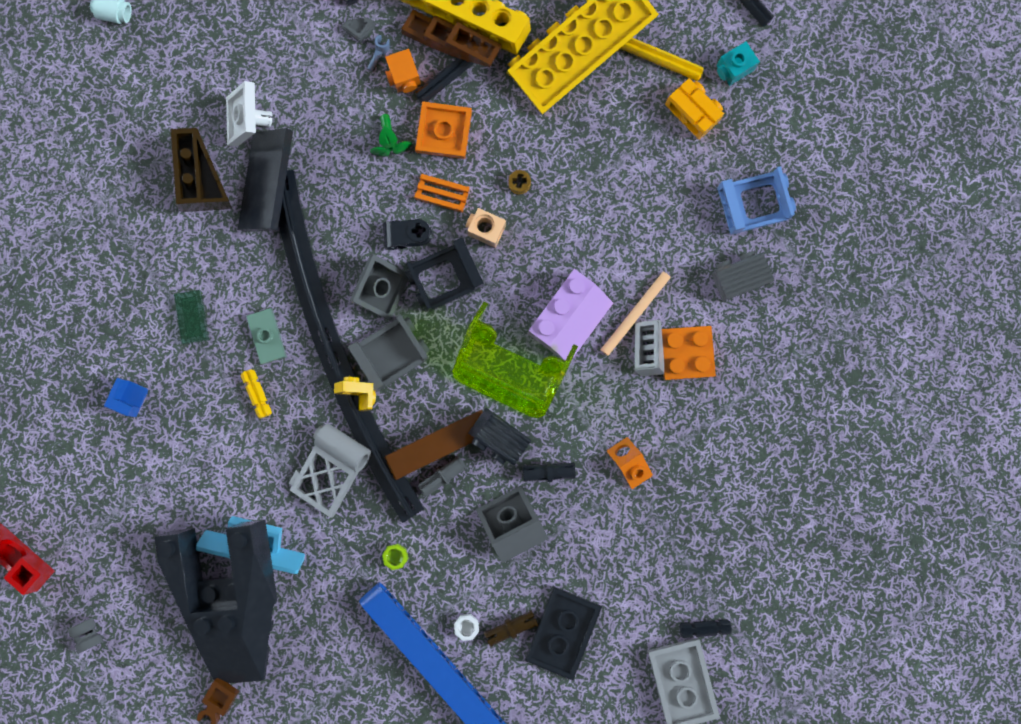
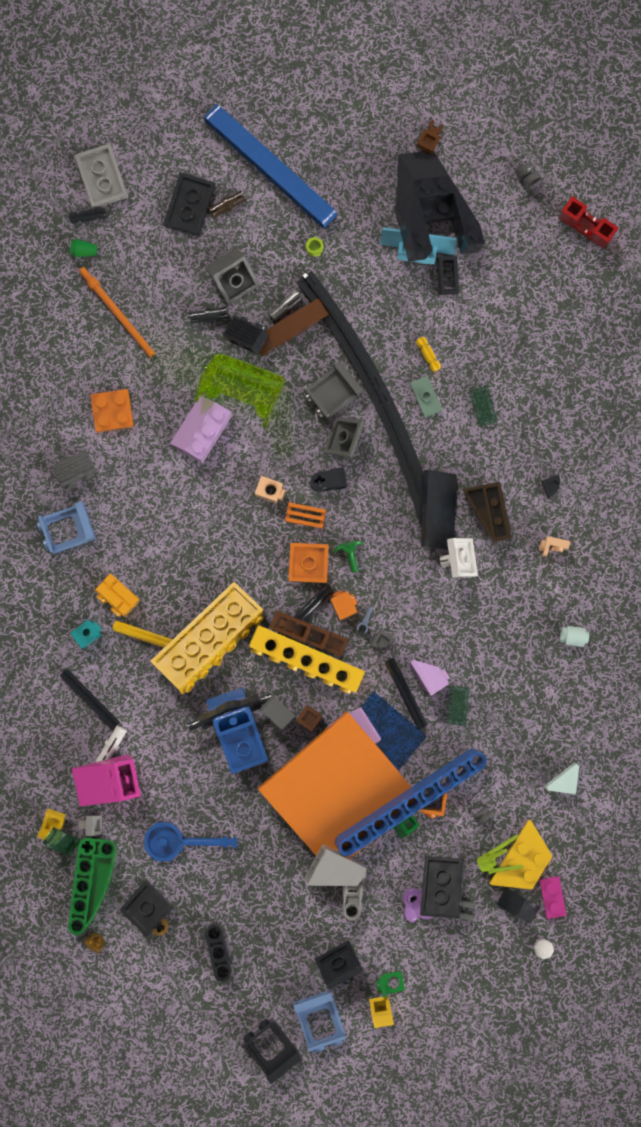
camera: 170 degrees right, 0 degrees up
(115, 204) = (551, 486): none -> black tile
(122, 127) = (557, 545): none -> light nougat bracket
(126, 397) = (522, 342): blue panel -> none
(225, 502) = (440, 260): none -> black slope
(337, 450) = (364, 317): light grey piece -> none
(364, 390) = (356, 360): yellow bracket -> none
(463, 266) = (283, 459): black window -> none
(466, 627) = (259, 202): white tile -> none
(513, 177) = (243, 524): pearl gold bush -> none
(632, 464) = (147, 323): orange bracket -> none
(635, 313) = (152, 437): light nougat bar -> none
(658, 358) = (147, 411): light grey slope -> none
(702, 528) = (94, 285): none -> orange bar
(715, 580) = (82, 248): none -> green cone

